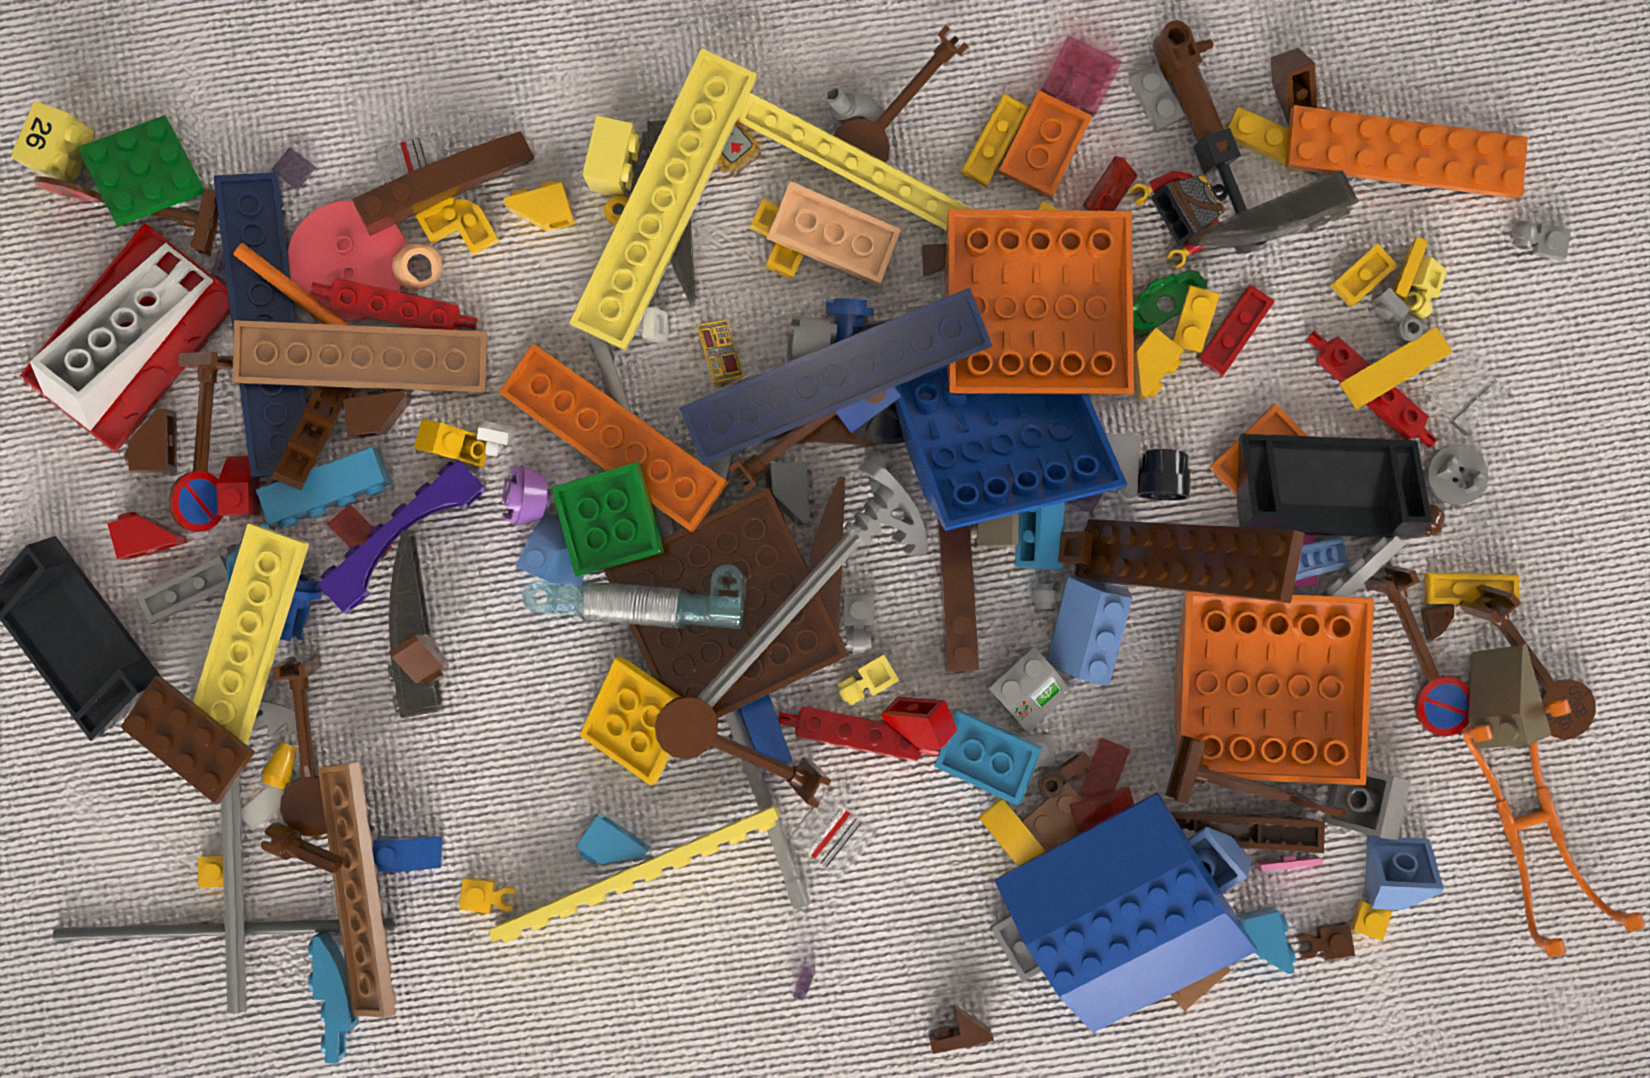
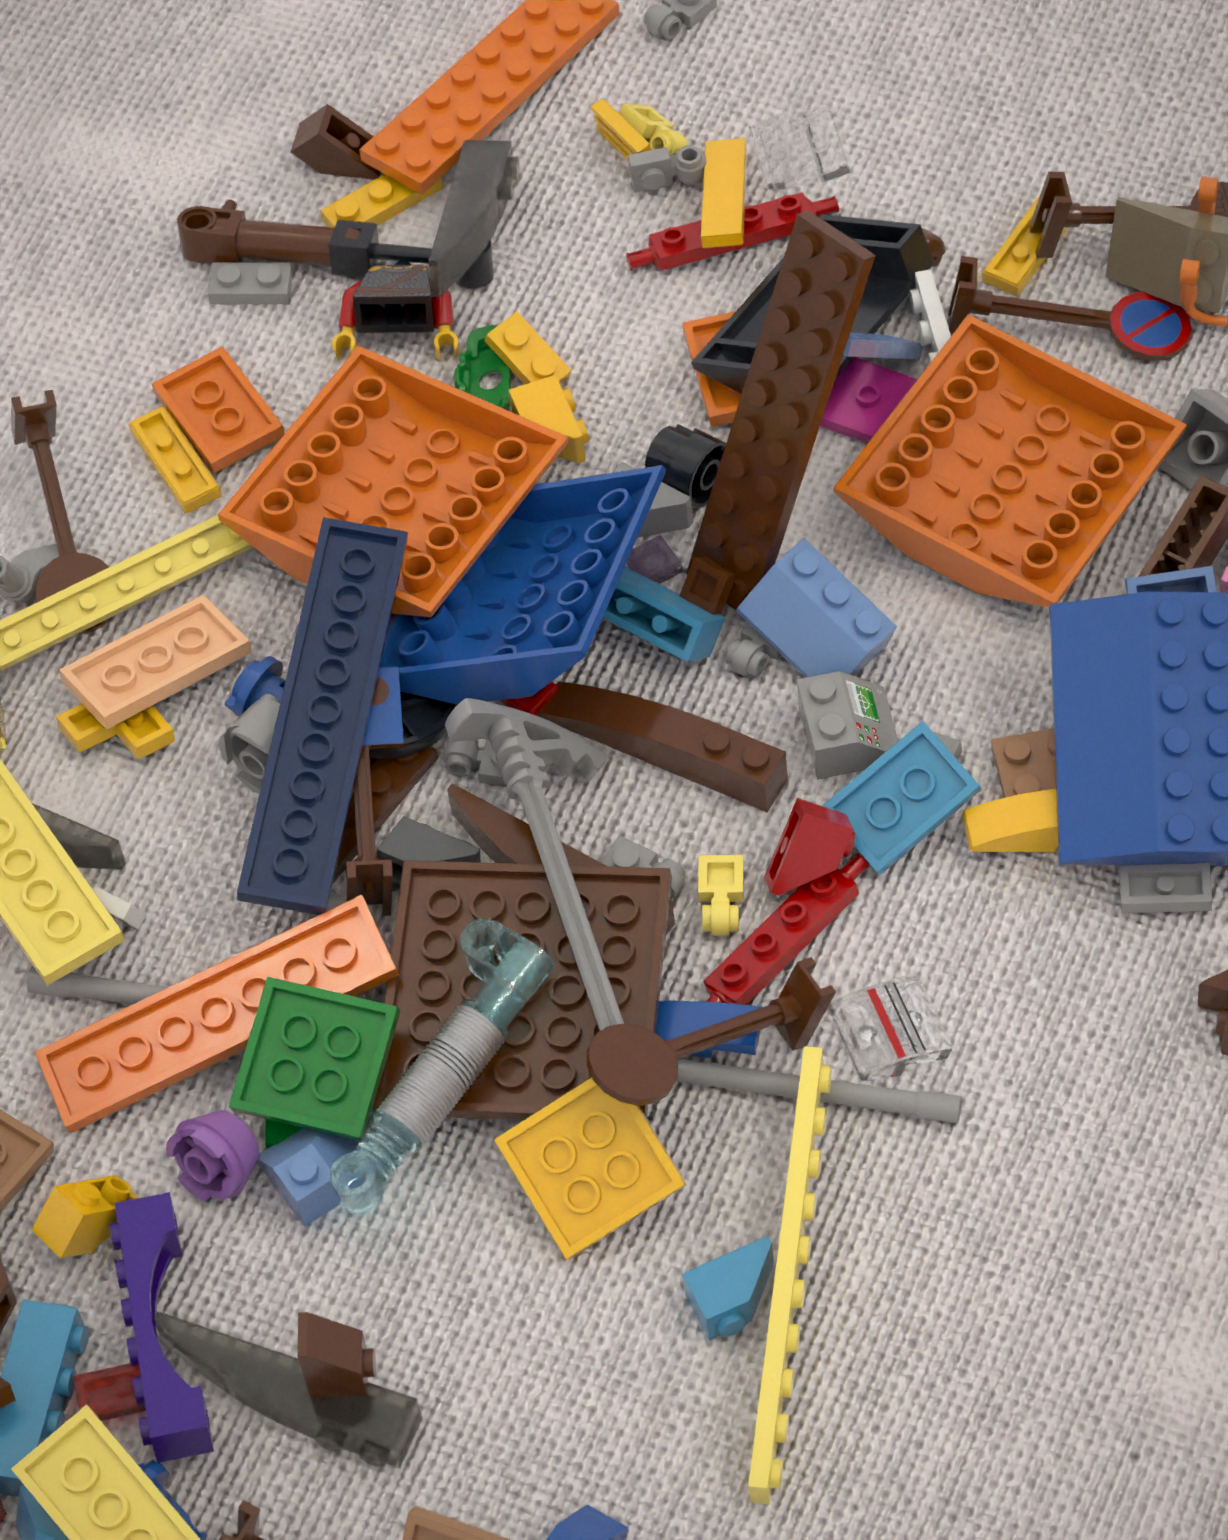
camera: 50 degrees left, 30 degrees down
(480, 895) = (700, 1494): yellow plate -> none
(495, 435) = (117, 1158): white tile -> none
(720, 352) = (199, 862): slope -> none
(804, 981) = (1057, 1149): clear purple tile -> none
(933, 258) = (262, 581): reddish brown tile -> none
(996, 532) = (632, 655): dark tan slope -> none
(1072, 768) = (981, 753): reddish brown plate -> none
(1081, 75) = (167, 336): clear pink plate -> none
(1099, 808) = (1037, 719): clear red plate -> none
(1106, 768) = (1004, 698): clear red plate -> none
(1111, 186) = (312, 360): clear red plate -> none
(1188, 770) = (1054, 581): reddish brown piece -> none
(1235, 330) = (571, 329): red tile -> none
(1364, 275) = (598, 180): yellow plate -> none
(1436, 620) = (1043, 287): reddish brown tile -> none
(1445, 466) = (902, 187): light grey plate -> none

